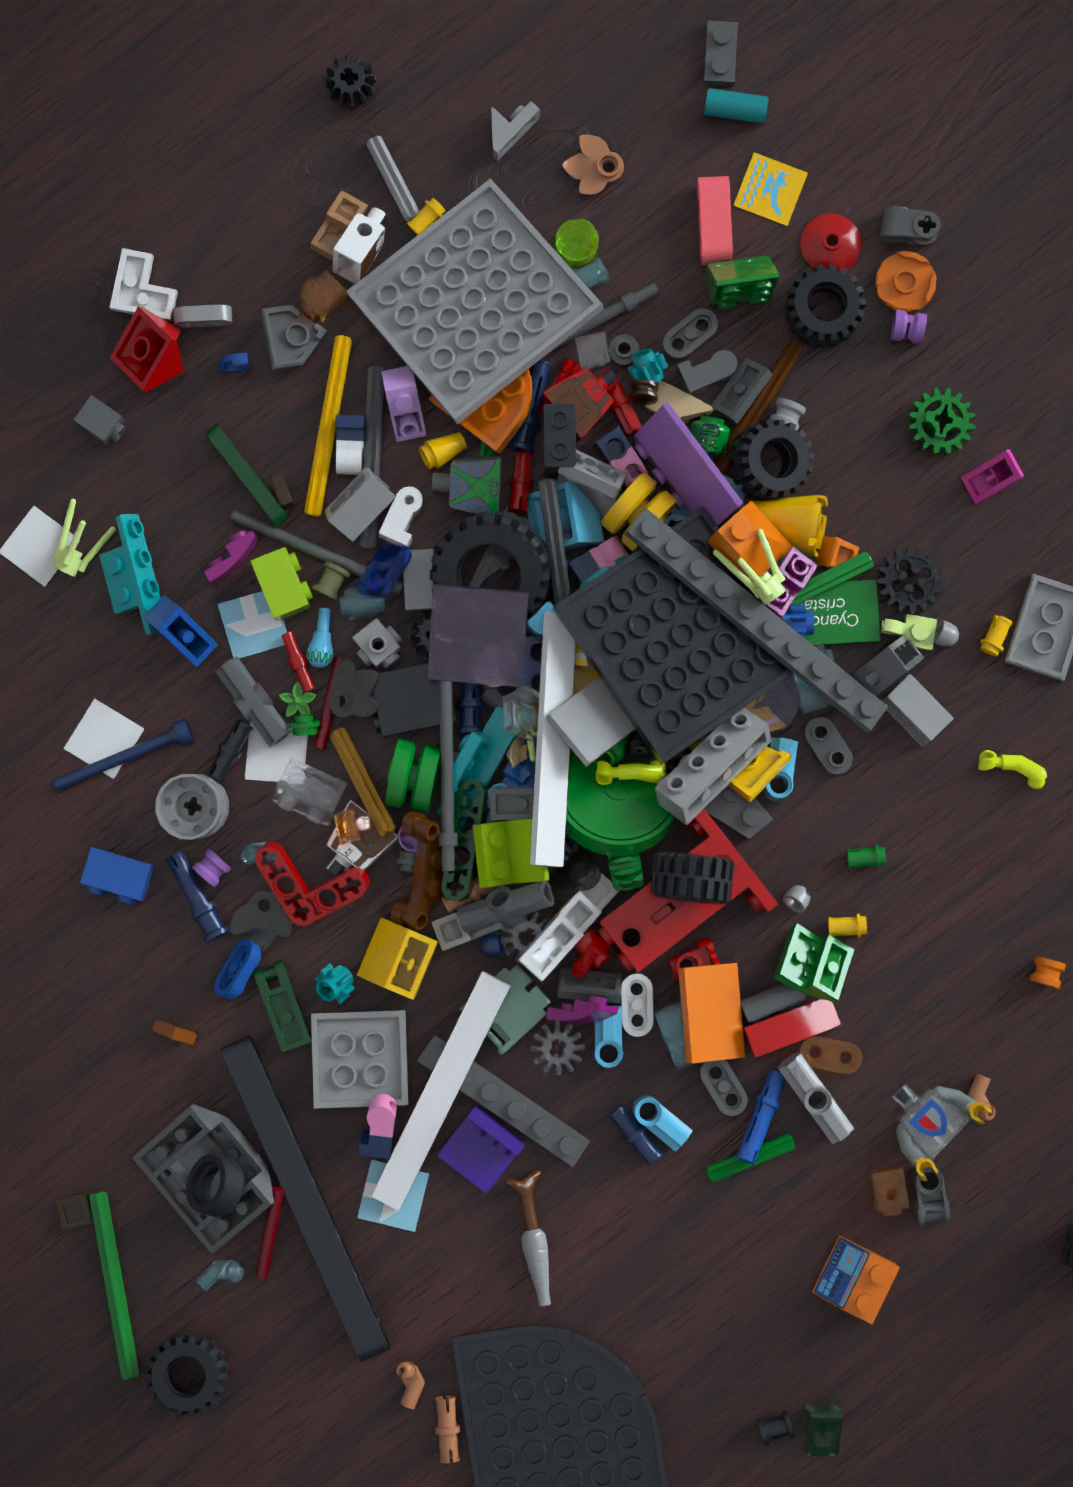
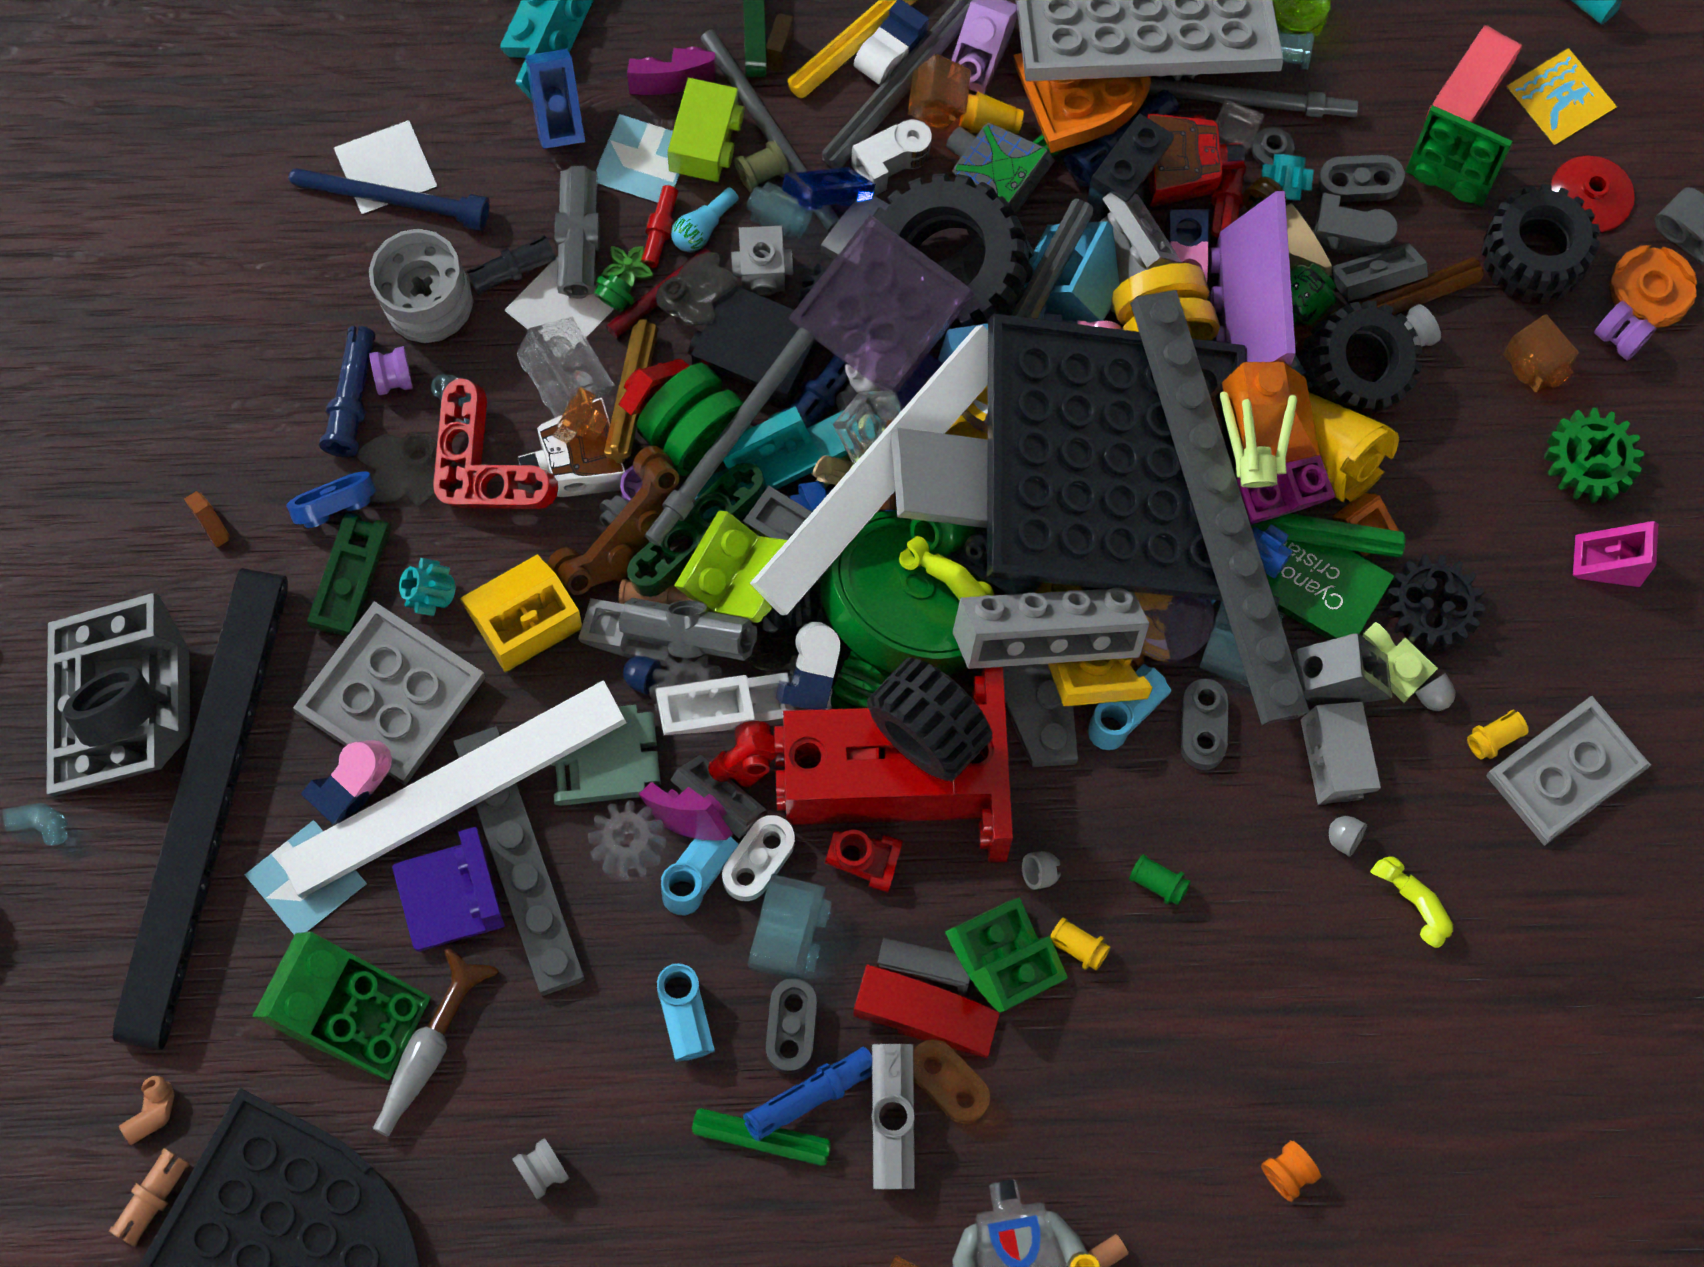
camera: 35 degrees right, 15 degrees down
(118, 875) = (282, 307): blue brick -> none
(269, 1234) = (129, 812): dark red bar -> none
(359, 504) = (854, 106): light grey hinge -> none
(378, 770) = (646, 382): none -> red plate
(403, 459) = (939, 91): none -> clear orange brick
(470, 1253) = (341, 1005): none -> green slope
(521, 482) = (1053, 205): red axle -> none
(597, 884) = (814, 668): none -> leg
(636, 1135) = (643, 1009): dark blue pin -> none
(646, 1262) = (540, 1168): none -> light grey wheel
(711, 1013) = (839, 920): orange tile -> none
(871, 378) = (1541, 354): none -> clear orange brick
(950, 755) = (1346, 834): none -> light grey hinge

